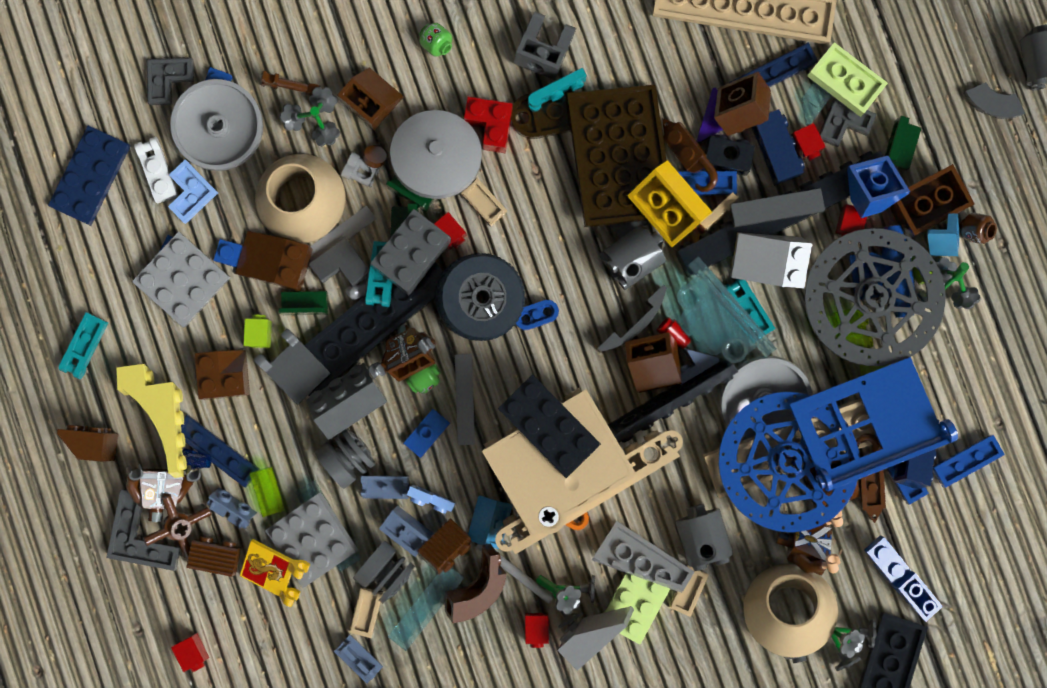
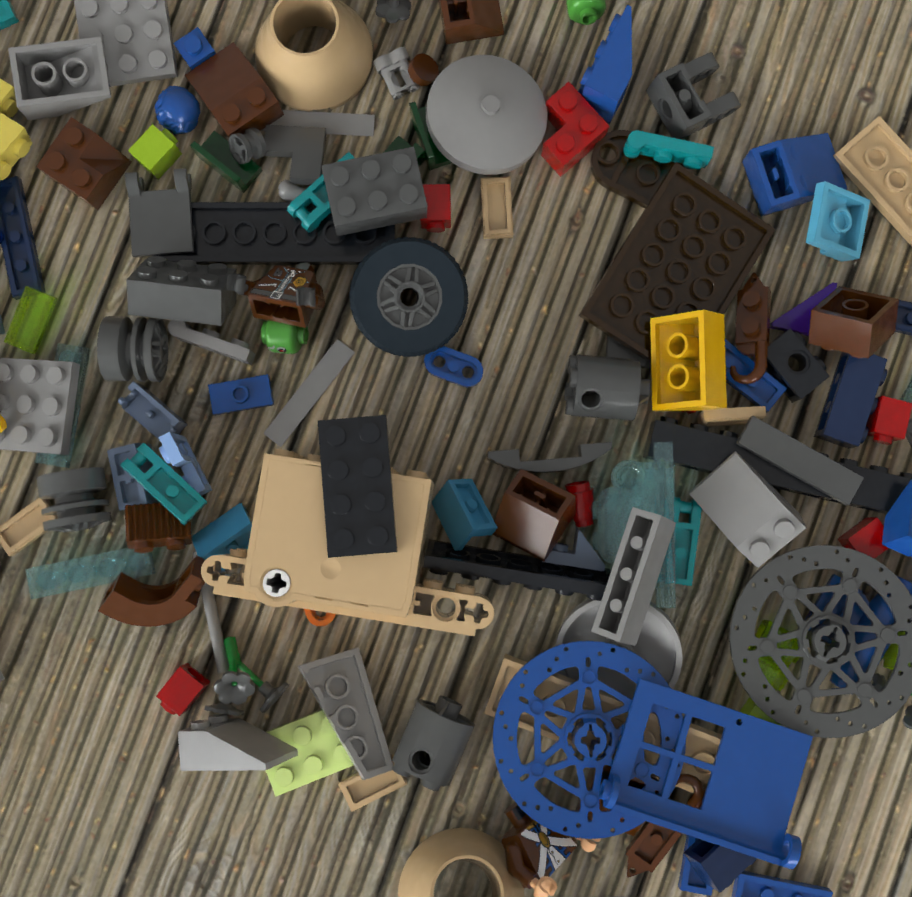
camera: 45 degrees right, 0 degrees up
(166, 334) = (59, 76): none -> light grey slope
(249, 298) = (177, 110): none -> blue hair
(310, 285) = (247, 145): none -> dark grey wheel
(383, 416) = (211, 341): none -> light grey plate
(430, 519) = (164, 484): none -> teal plate
(488, 70) = (612, 69): none -> blue slope
(612, 394) = (462, 512): none -> dark azure panel
(638, 43) = (788, 170): none -> blue slope
(687, 53) = (837, 222): none -> medium azure plate
(739, 350) = (633, 576): none -> light grey brick

